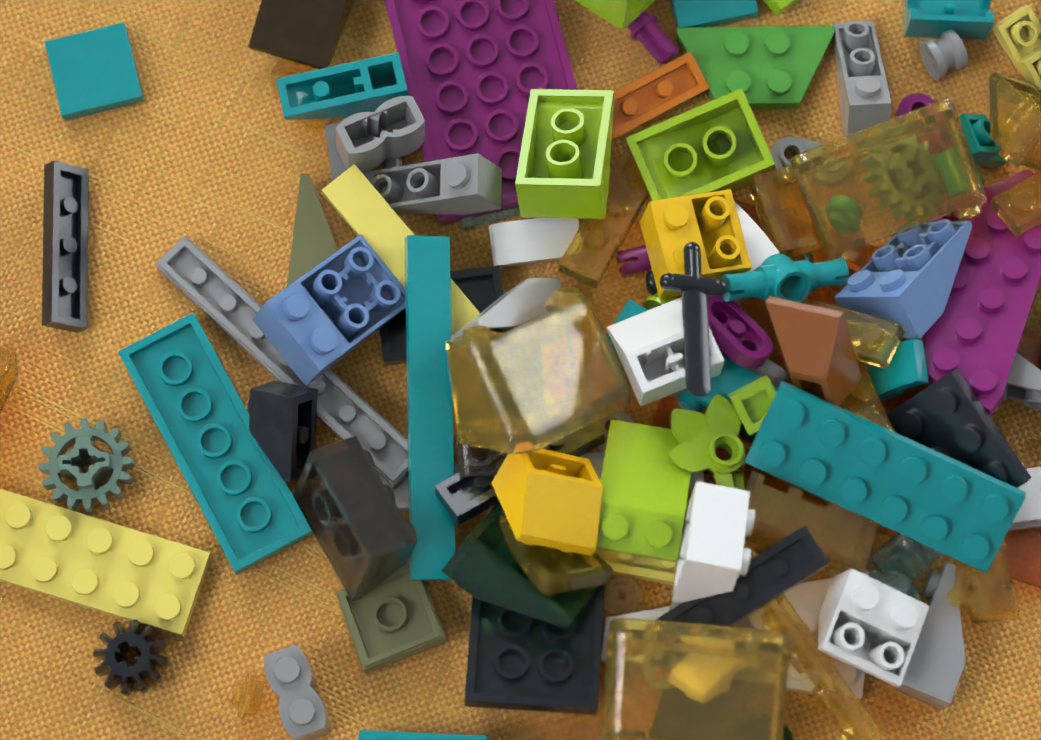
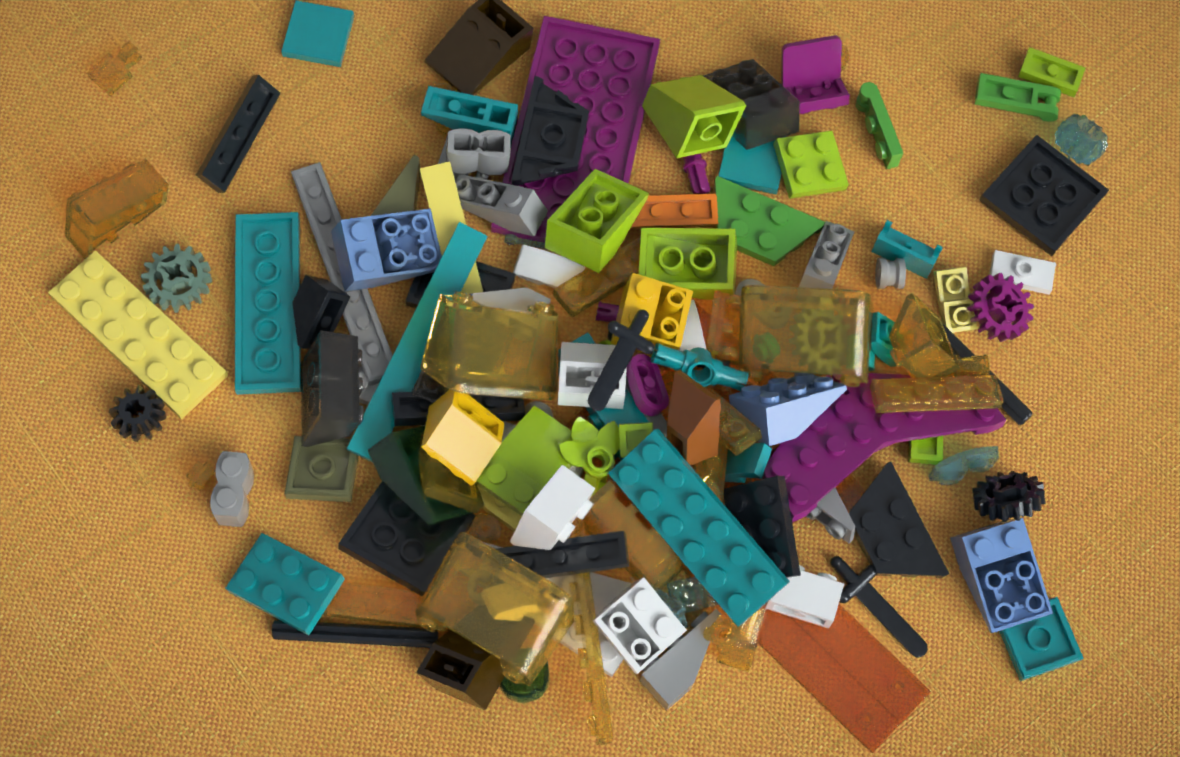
camera: 20 degrees right, 5 degrees down
(455, 72) = (550, 136): none -> black wing

